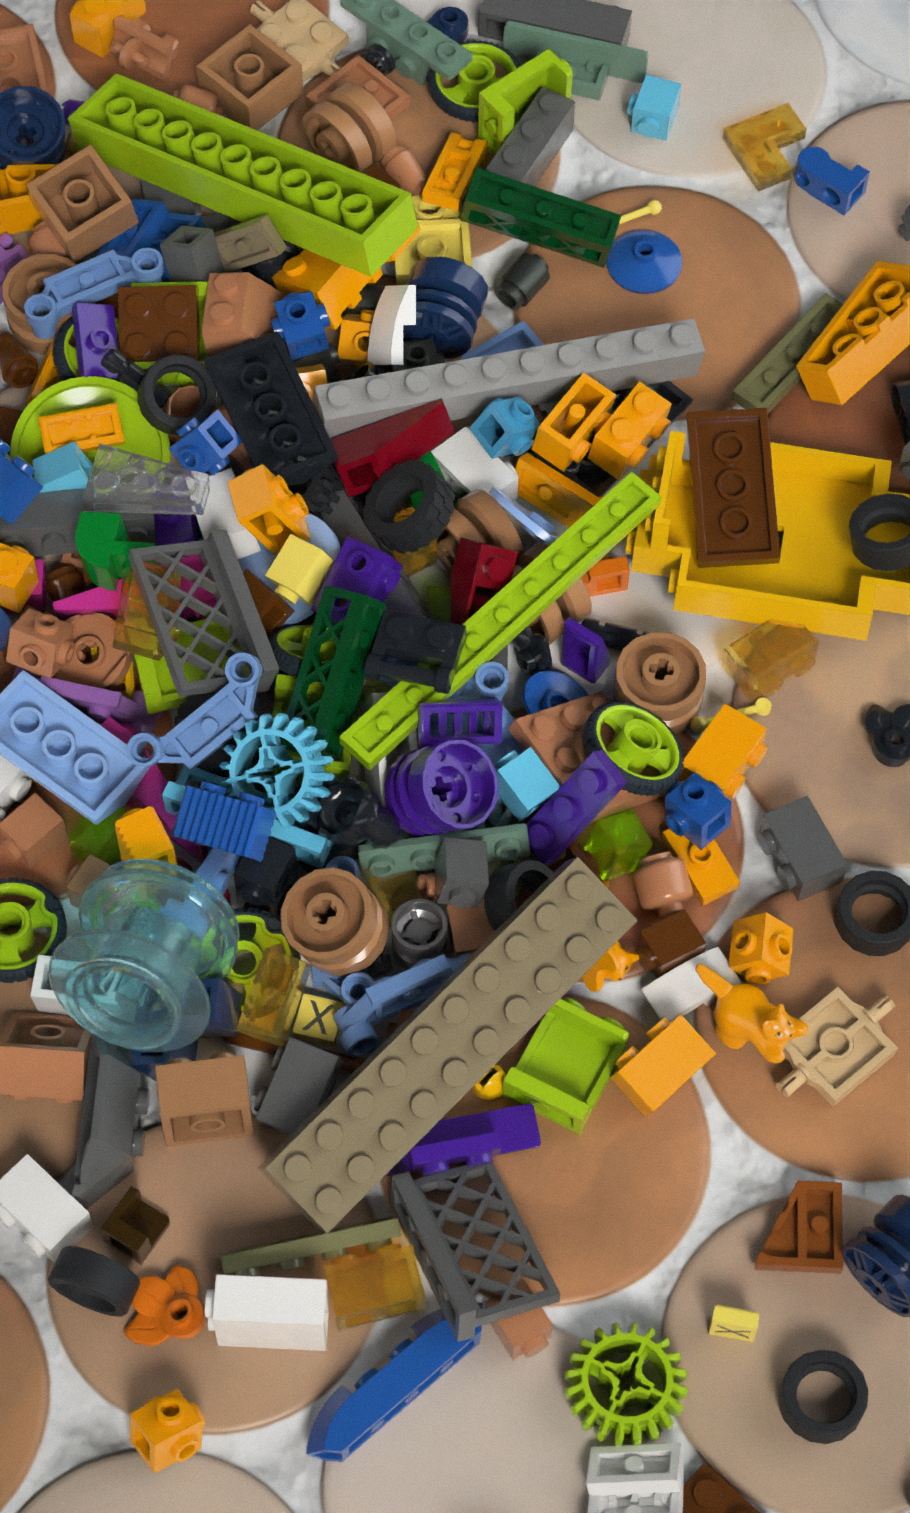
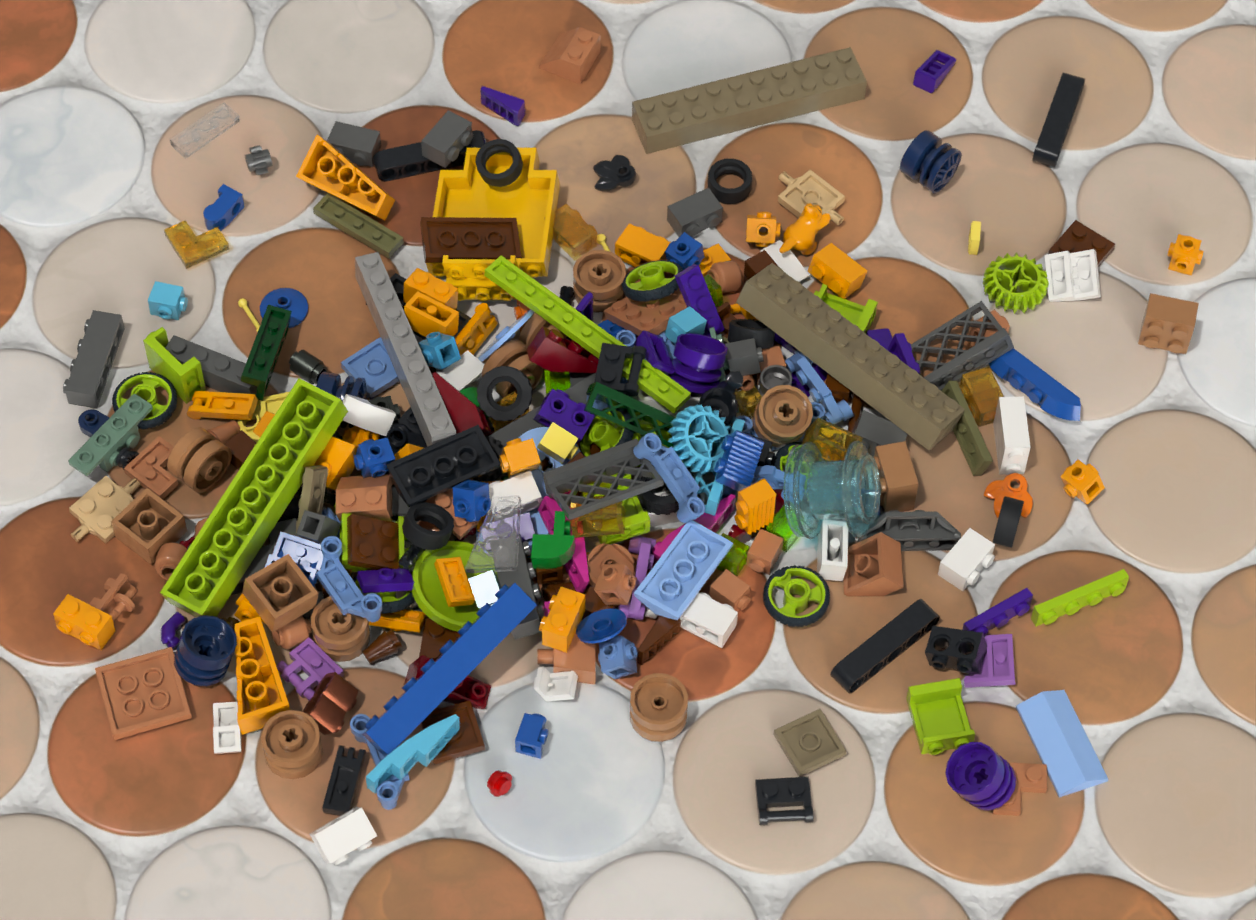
camera: 95 degrees left, 5 degrees down
(134, 1227) = (966, 515): dark brown panel -> none
(588, 58) = (129, 349): sand green bracket -> none
(807, 1231) = (917, 209): dark orange wing -> none
(838, 1365) = (1005, 186): black tyre -> none

